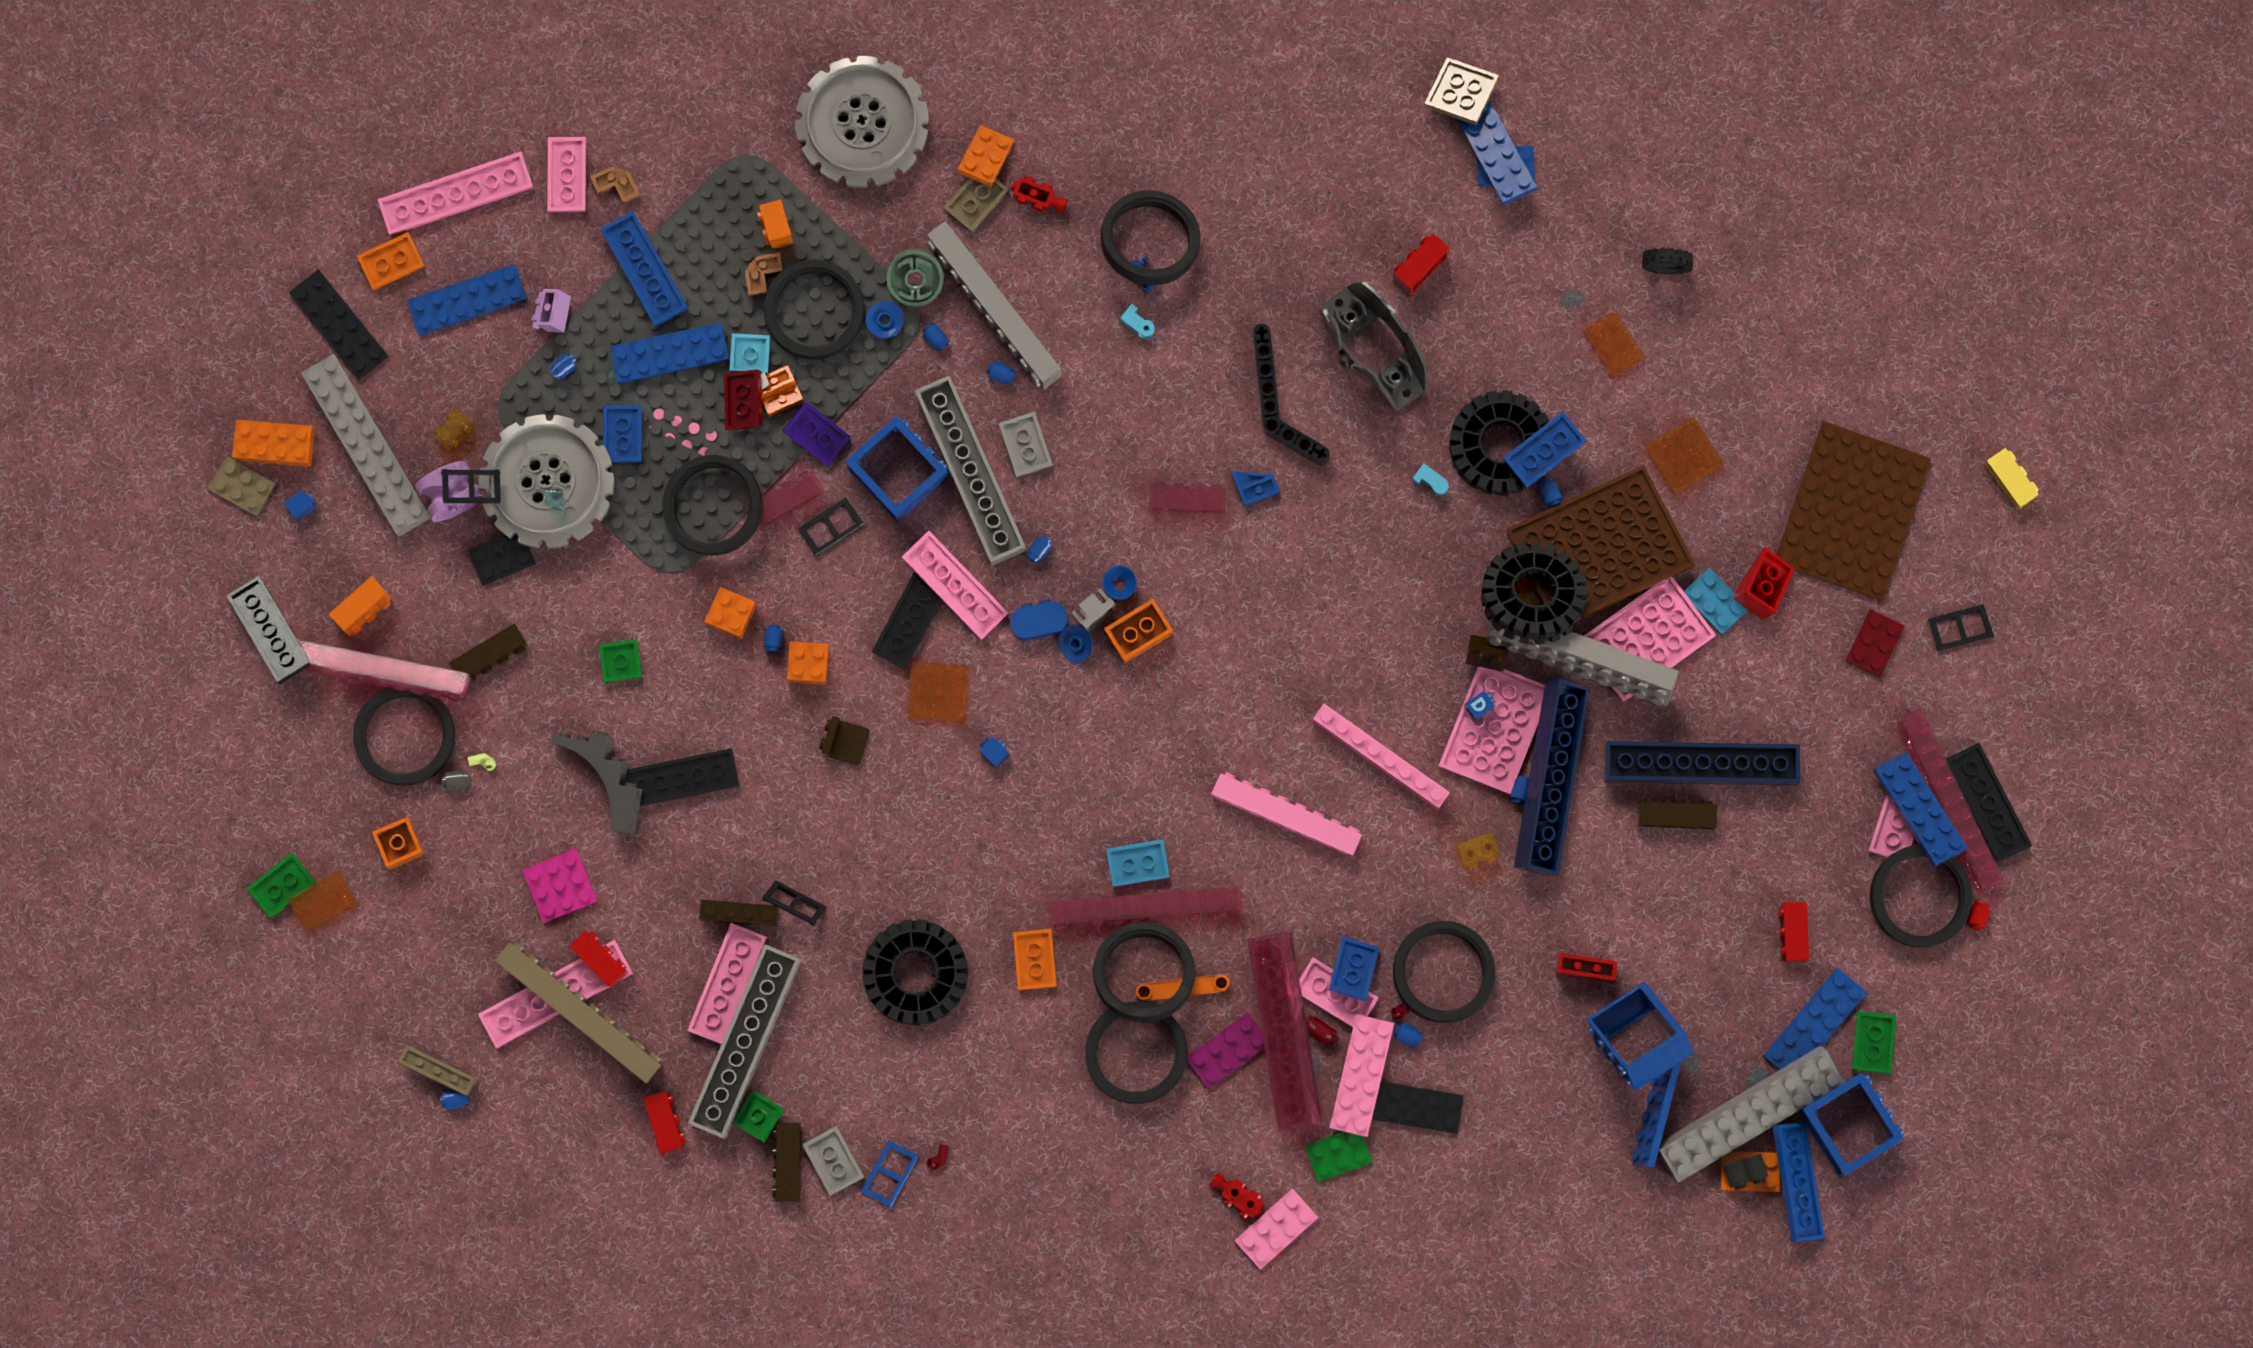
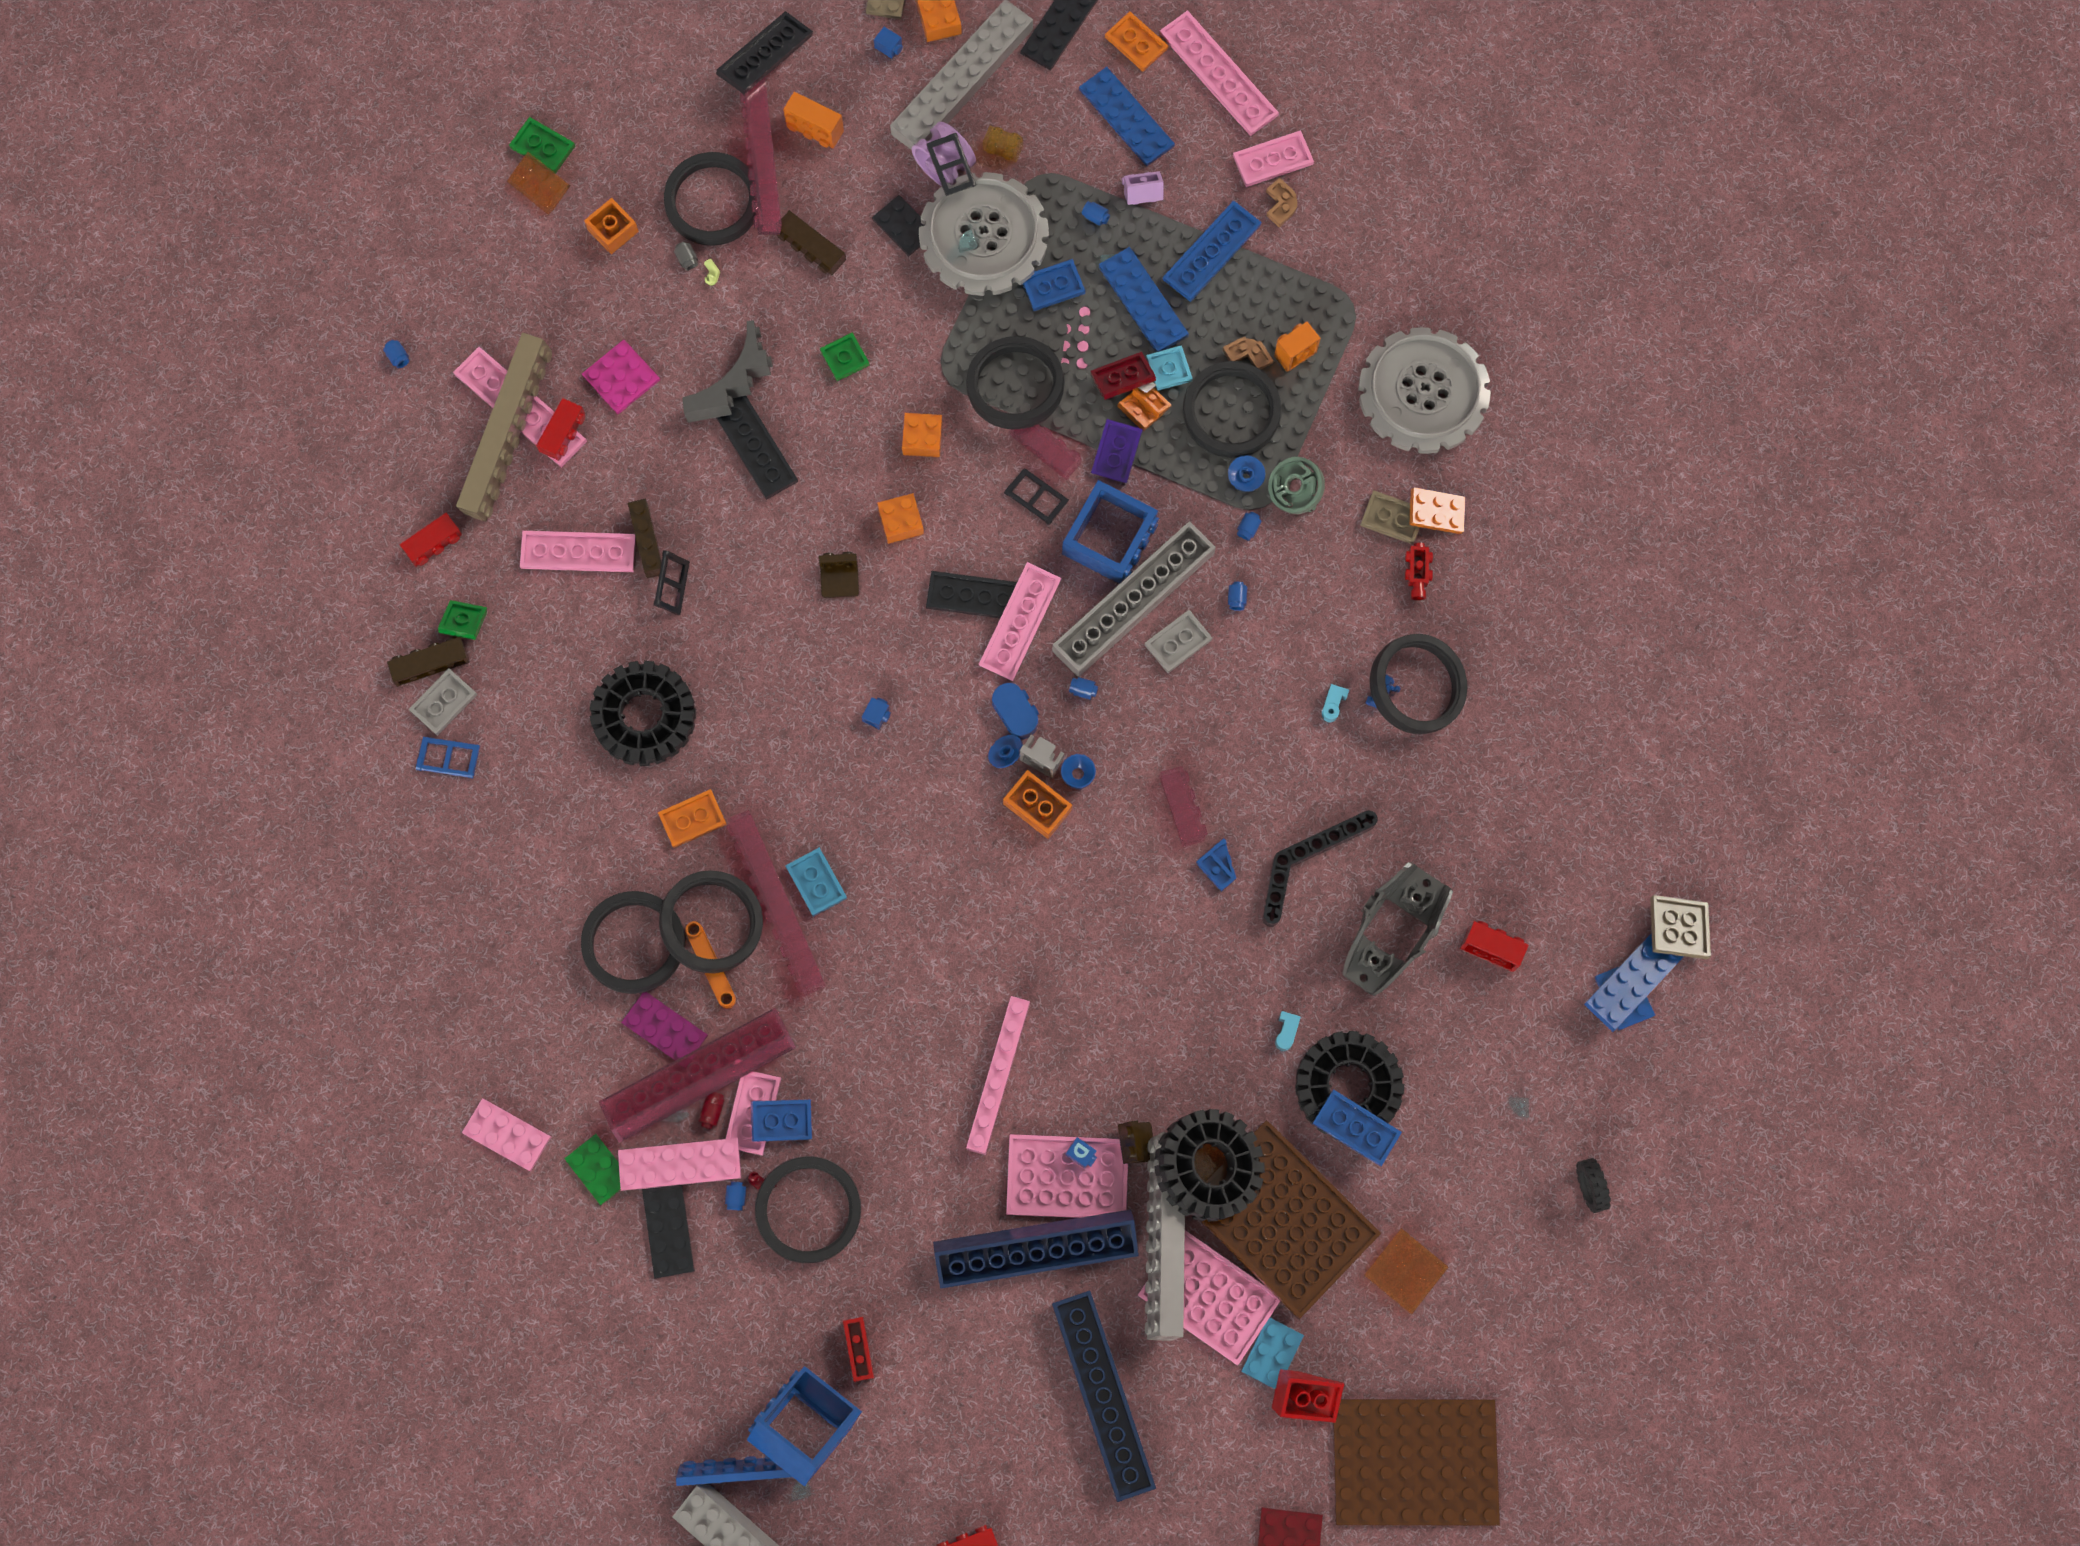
camera: 65 degrees right, 5 degrees down
(437, 1070) = (415, 328): dark tan fence -> none
(744, 1042) = (527, 583): light grey brick -> none
(773, 638) = (912, 481): blue brick -> none
(938, 692) = (916, 644): clear orange plate -> none
(938, 1160) = (474, 797): dark red arm -> none
(994, 305) = (1297, 565): light grey brick -> none
(1241, 1199) = (526, 1091): red brick -> none
(1286, 815) = (910, 1005): bright pink brick -> none
(1477, 848) = (940, 1200): clear yellow brick -> none
(1519, 790) = (1013, 1221): blue brick -> none
(1549, 492) = (1318, 1150): blue brick -> none
(1614, 344) = (1490, 1163): clear orange plate -> none
(1677, 815) = (1043, 1389): dark brown brick -> none

